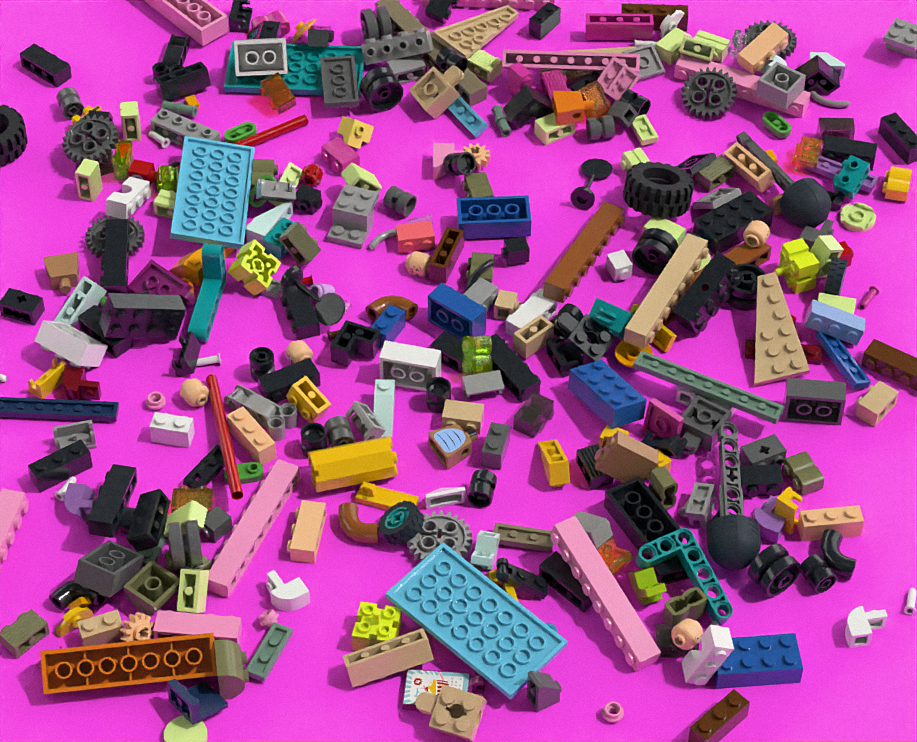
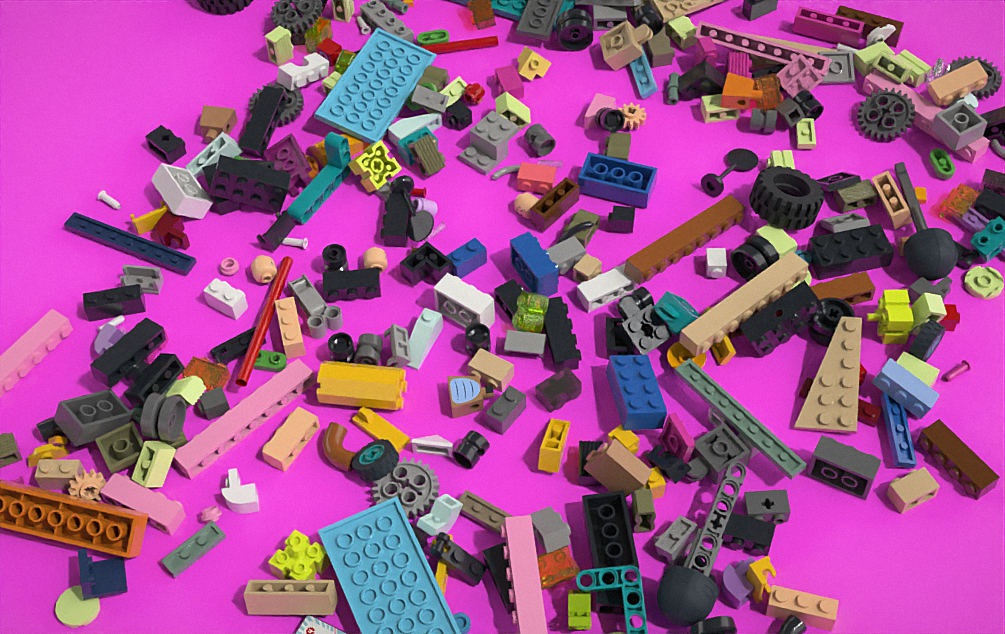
camera: 25 degrees right, 5 degrees up
(230, 668) = (142, 553): olive brick -> none
(308, 400) = (355, 309): yellow brick -> none
(376, 307) = (487, 238): dark orange cylinder -> none
(532, 336) = (595, 309): tan brick -> none
(756, 234) = (864, 271): light nougat head -> none
(803, 473) = (799, 541): olive brick -> none

